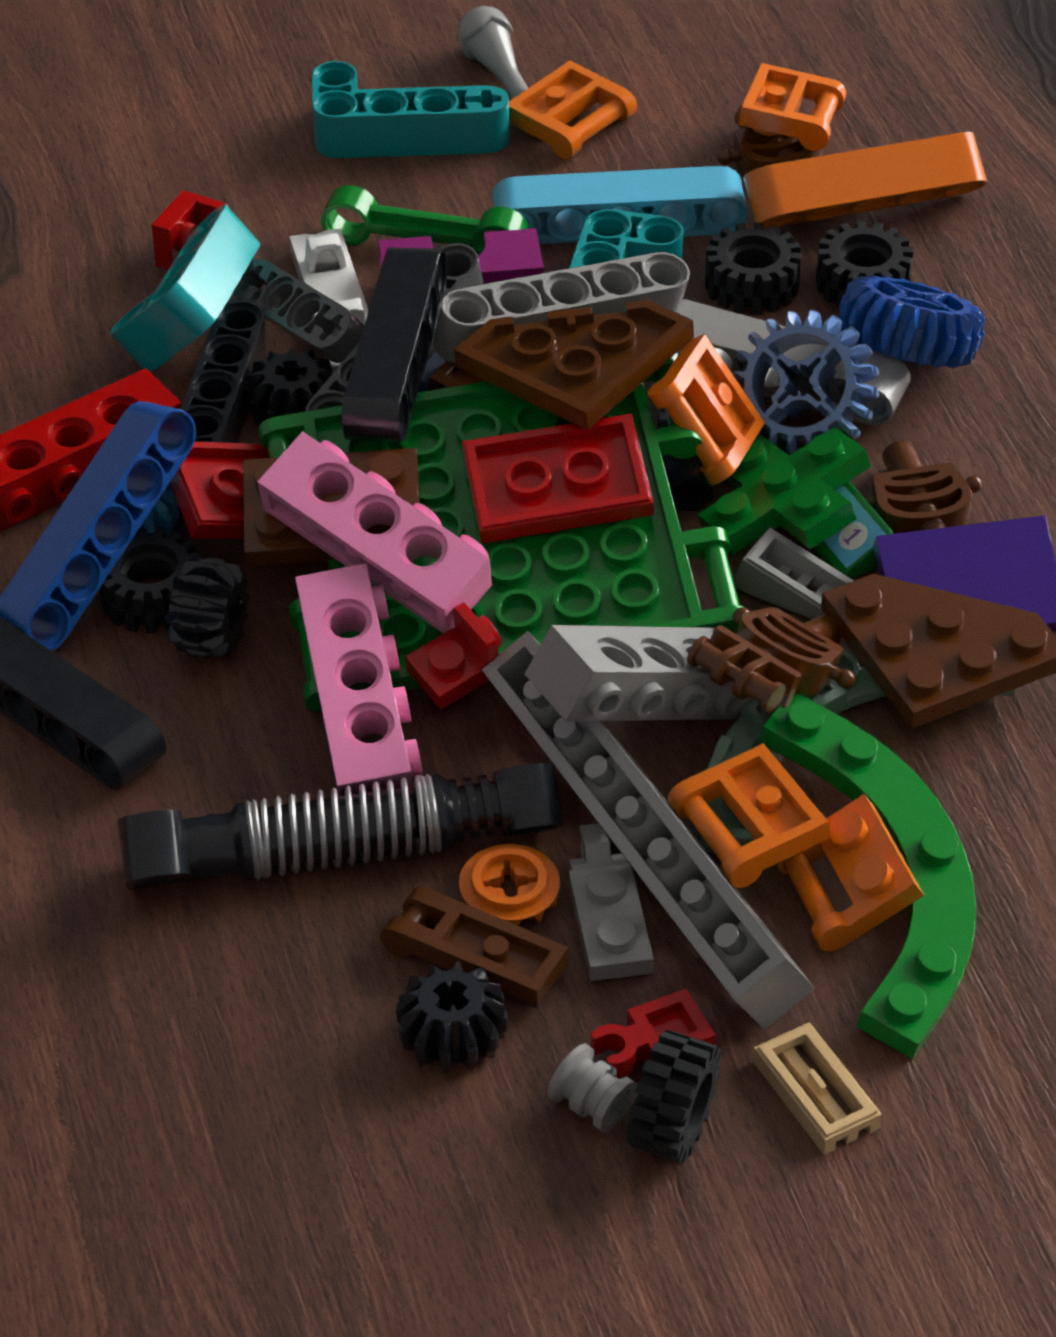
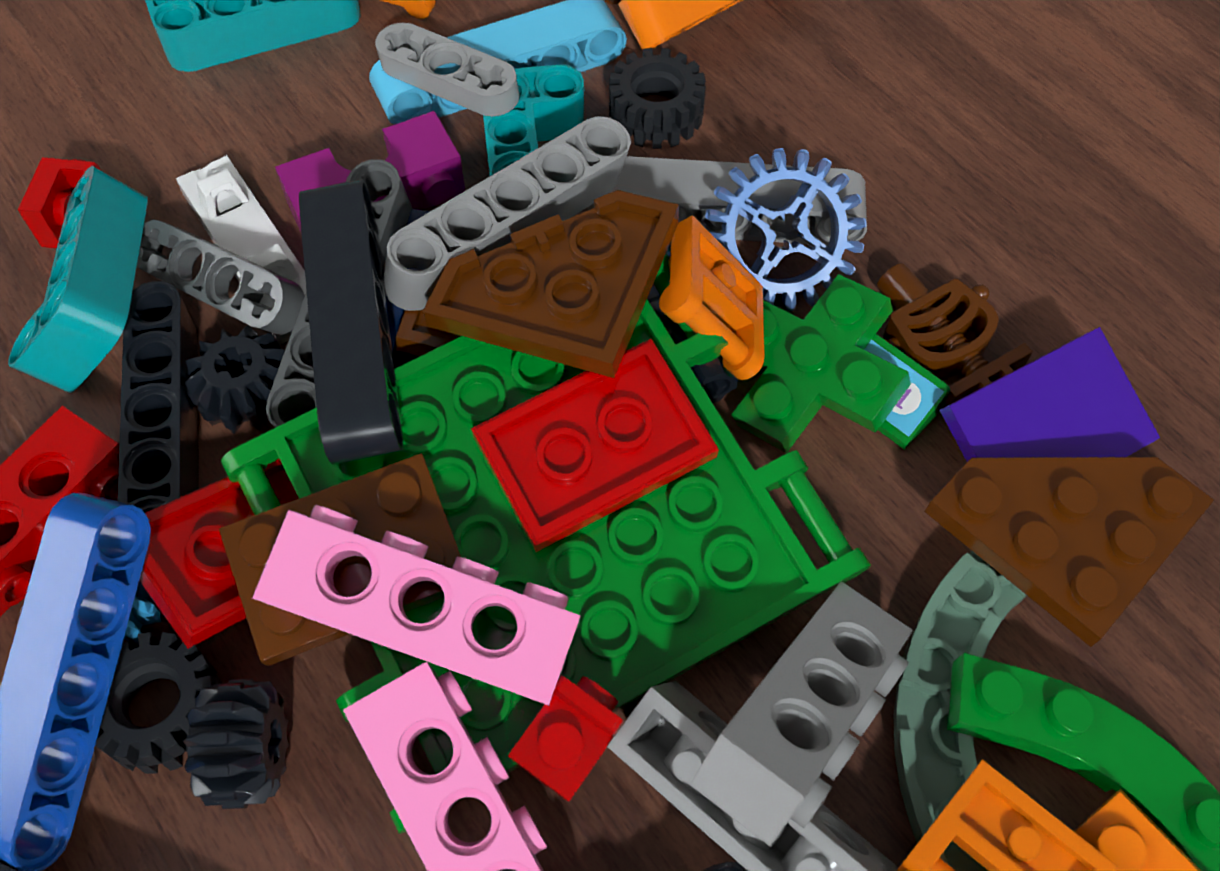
camera: 20 degrees left, 15 degrees up
(412, 223) = (301, 132): green piece -> none
(584, 215) = (414, 54): none -> light grey beam
(770, 570) = (864, 487): light grey slope -> none
(773, 656) = (934, 625): reddish brown torso -> none
(859, 254) = (762, 49): black tyre -> none
(912, 321) = (849, 124): blue gear -> none

